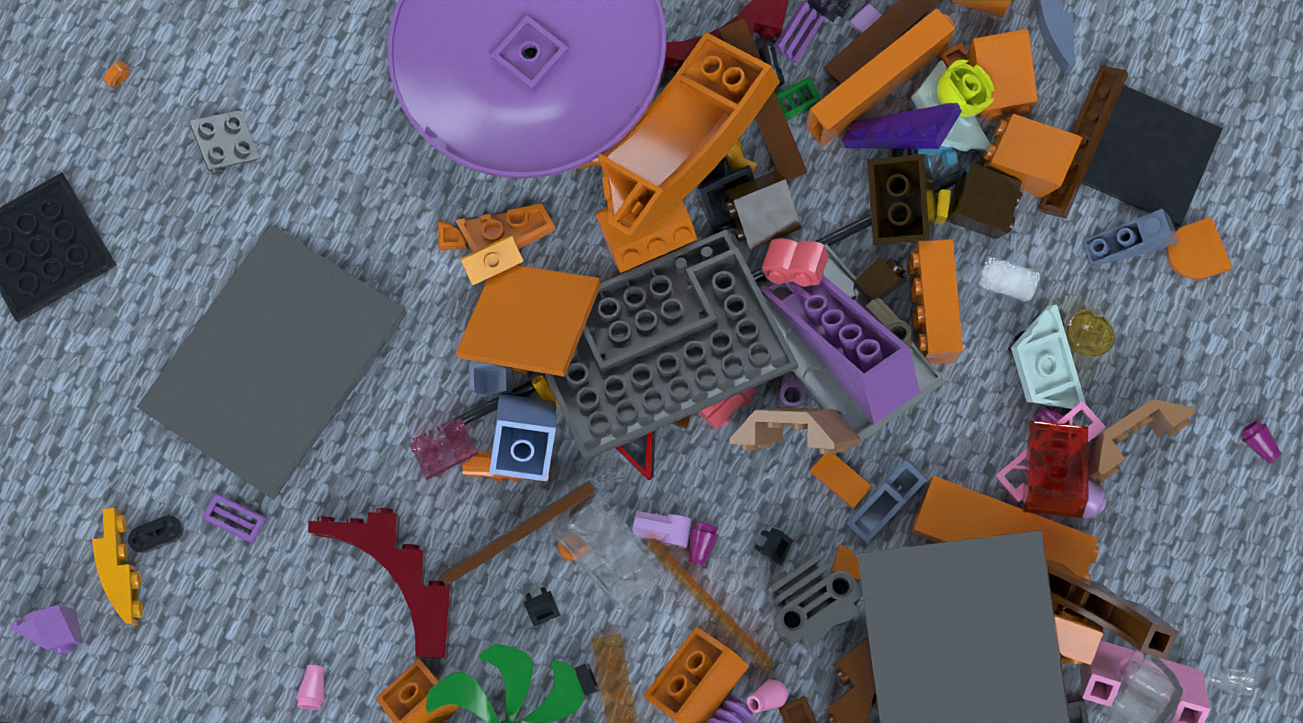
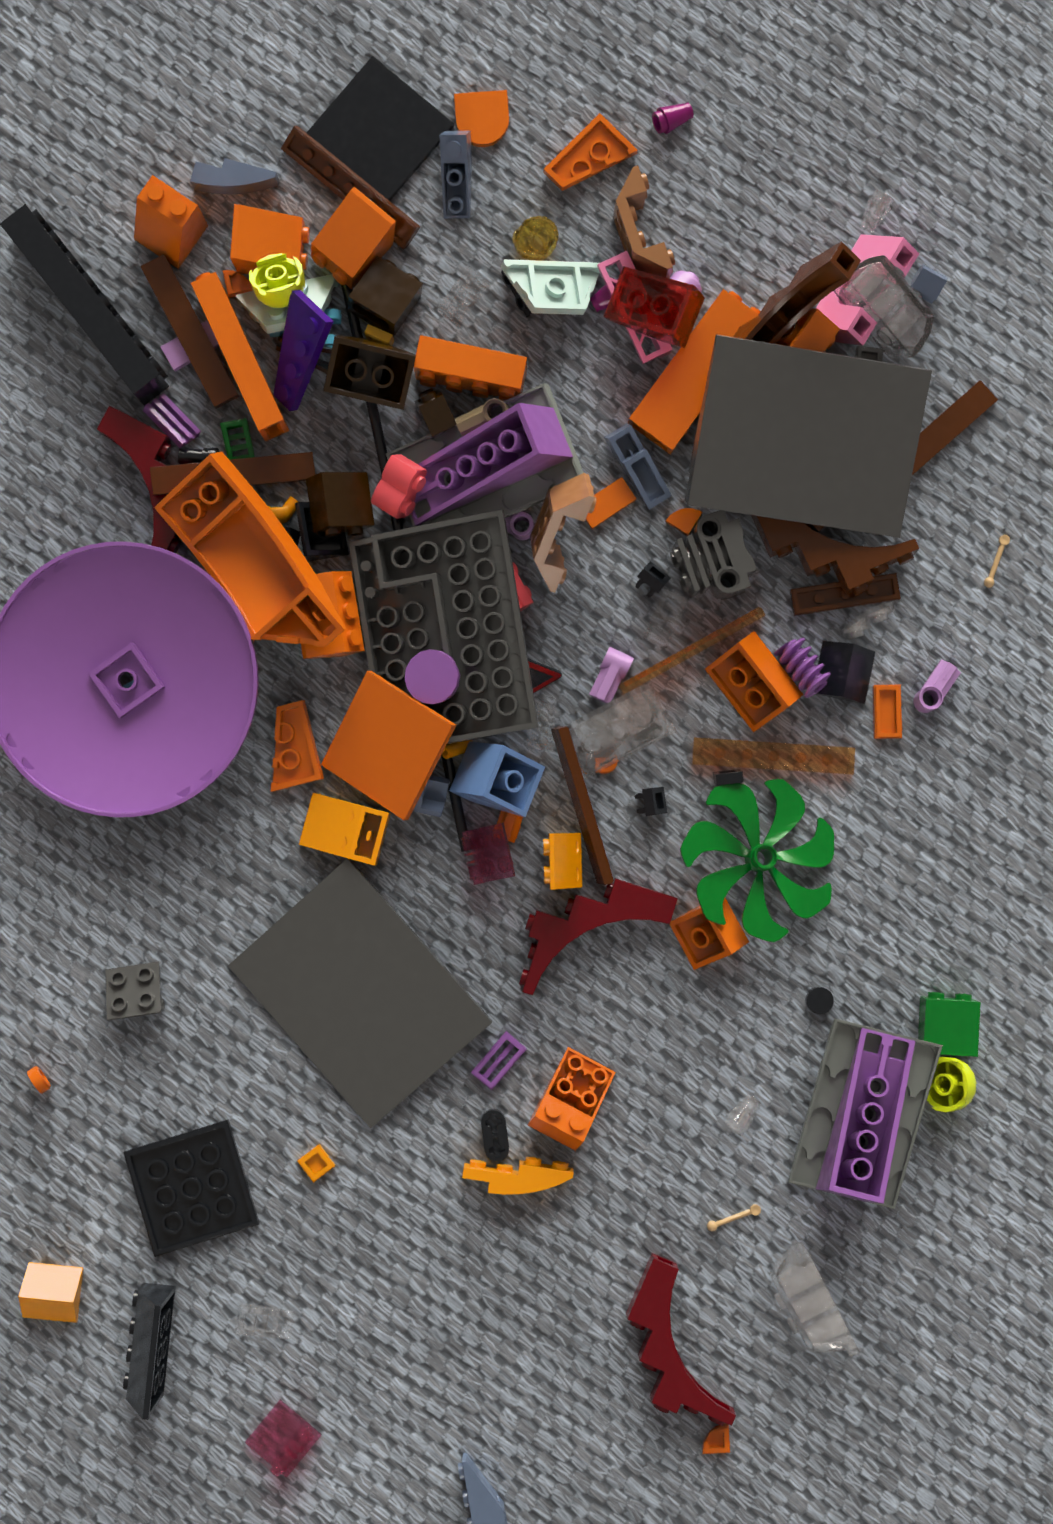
camera: 80 degrees left, 10 degrees up
(51, 628) = (561, 1246): medium lavender slope -> none
(89, 362) = (316, 1163): none -> light orange tile
(210, 603) = (572, 1099): none -> orange slope
(311, 690) = (672, 1024): bright pink cone -> none
(434, 302) = (344, 829): none -> light orange slope
(450, 237) = (285, 800): orange tile -> none
(454, 525) = (564, 860): none -> light orange slope
(491, 260) = (320, 766): light orange plate -> none
(608, 341) = (432, 677): none -> medium lavender tile
(702, 542) = (632, 642): magenta cone -> none
(768, 696) = (785, 621): bright pink cone -> none
(1195, 367) = (589, 153): none -> orange wing

